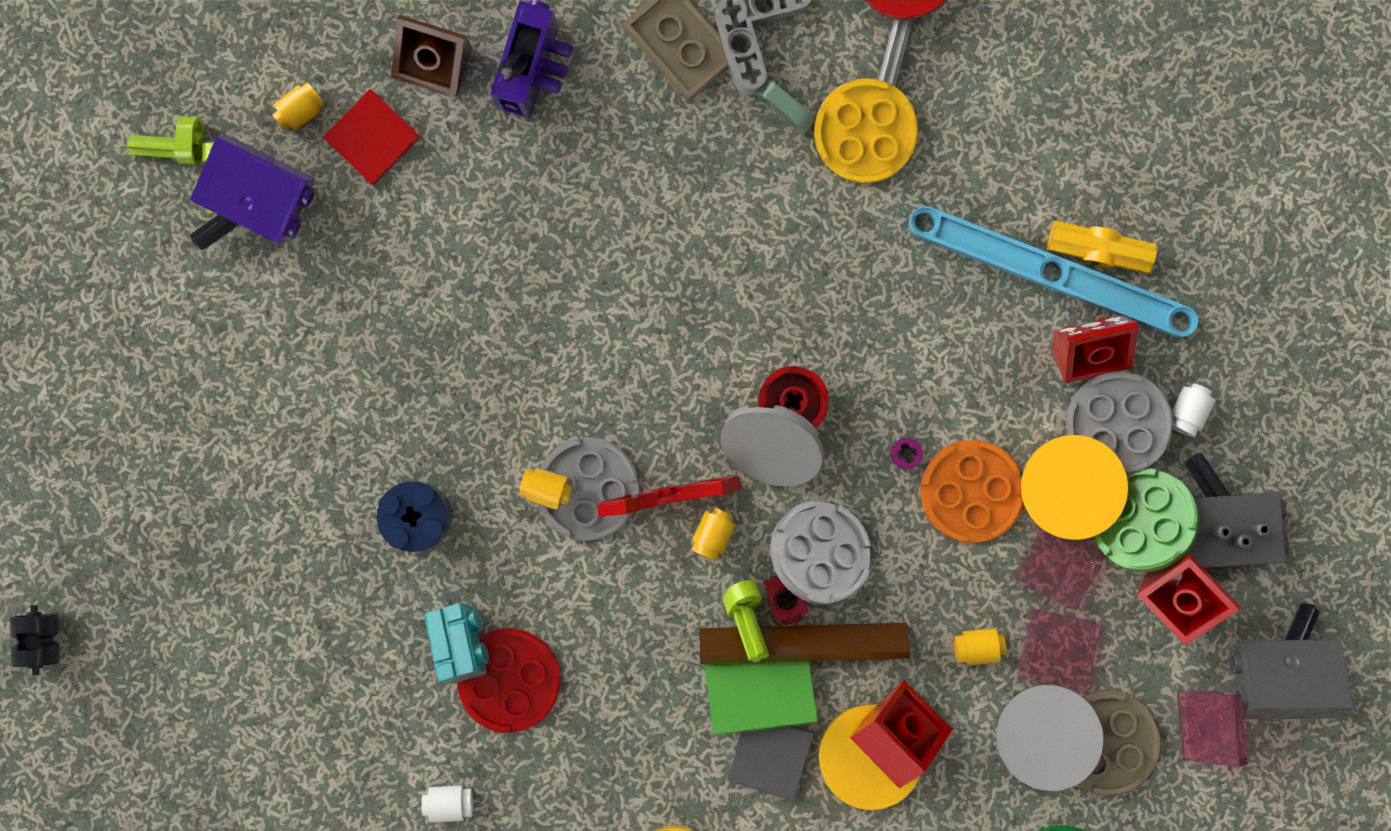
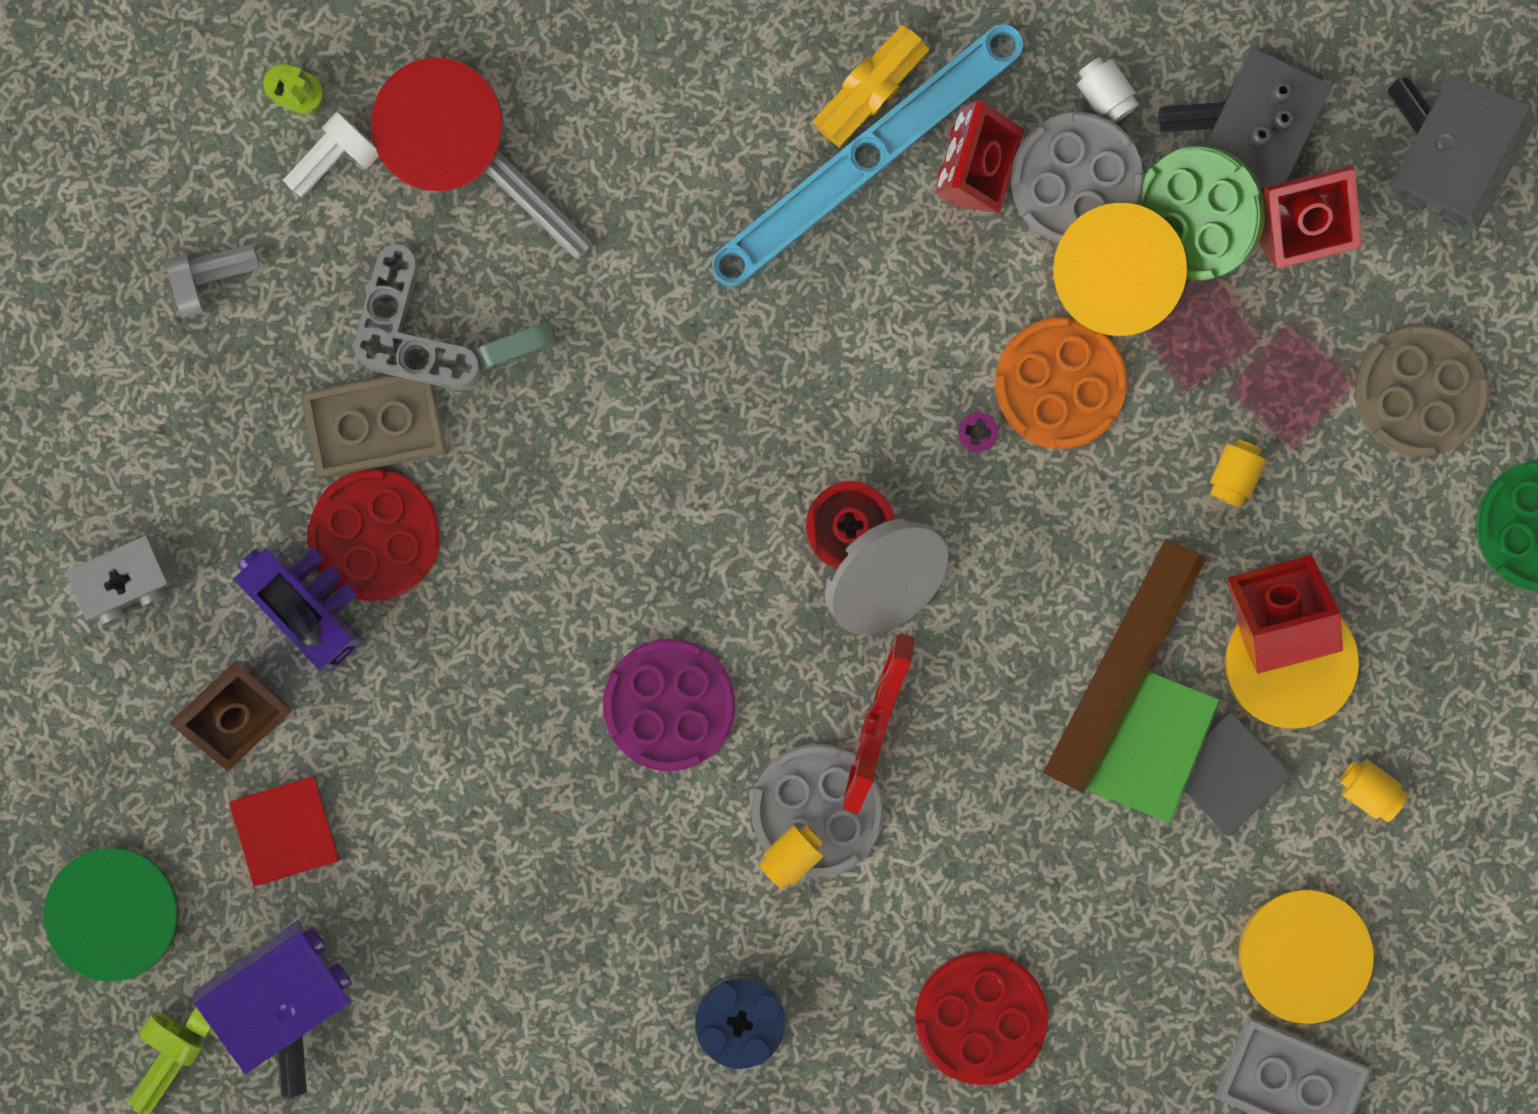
camera: 60 degrees left, 0 degrees up
(251, 53) = (111, 914): none -> green tile
(298, 107) = (204, 895): yellow brick -> none
(456, 643) = (908, 1052): teal brick -> none
(602, 348) = (669, 705): none -> magenta tile
(606, 85) = (375, 533): none -> red tile
(713, 533) = (946, 697): yellow brick -> none
(740, 604) = (1041, 712): lime piece -> none
(788, 615) = (1043, 651): dark red brick -> none
(820, 552) = (1034, 589): light grey tile -> none
(866, 130) = (592, 273): yellow tile -> none
(1050, 737) = (1379, 452): light grey tile -> none
(1212, 727) = (1468, 269): clear pink tile -> none

